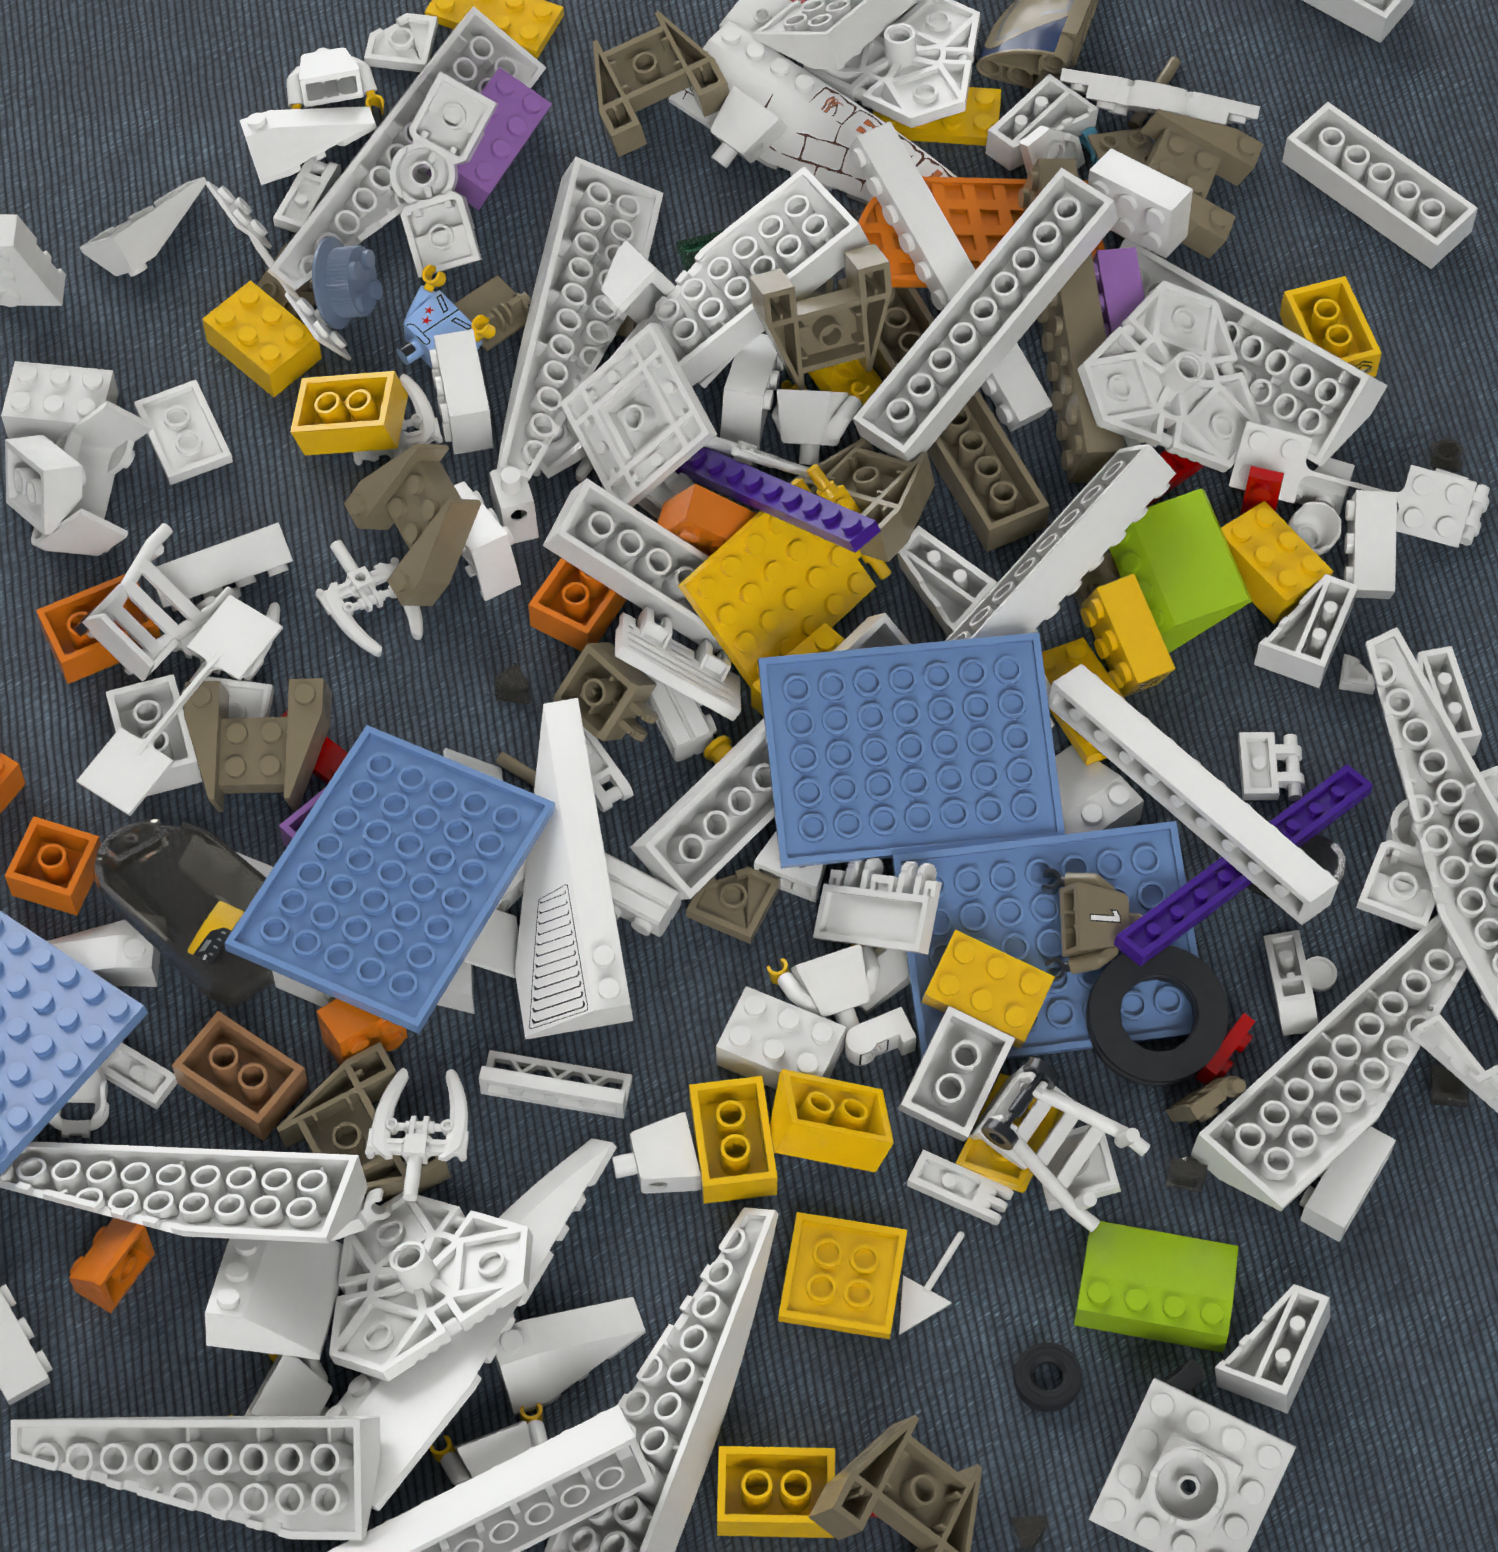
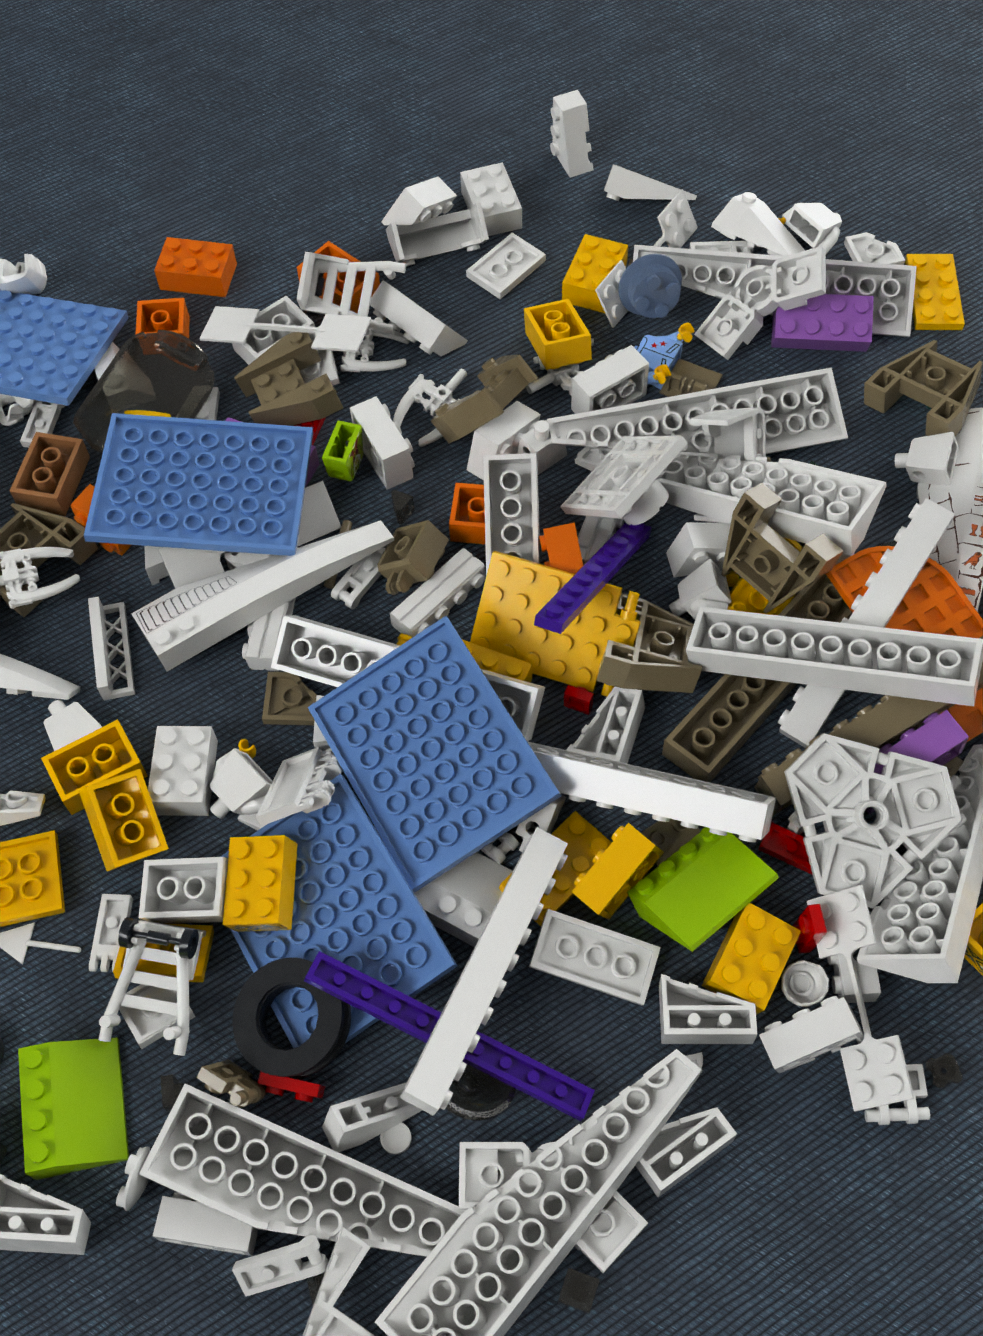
camera: 70 degrees right, 0 degrees up
(412, 667) = (383, 442): none -> white brick
(418, 713) = (343, 460): none -> lime torso
(656, 654) = (442, 579): white hinge -> none
(750, 454) = (649, 568): white bar -> none
(879, 1036) = (211, 827): white leg -> none
(883, 599) = (578, 699): none -> red plate
(1090, 920) = (339, 932): dark tan torso -> none
(1209, 700) = (594, 957): none -> white plate
(1259, 766) = (563, 1021): white plate -> none
(1273, 1228) = (136, 1183): none -> white dish
(1422, 1114) = (280, 1266): none -> white plate

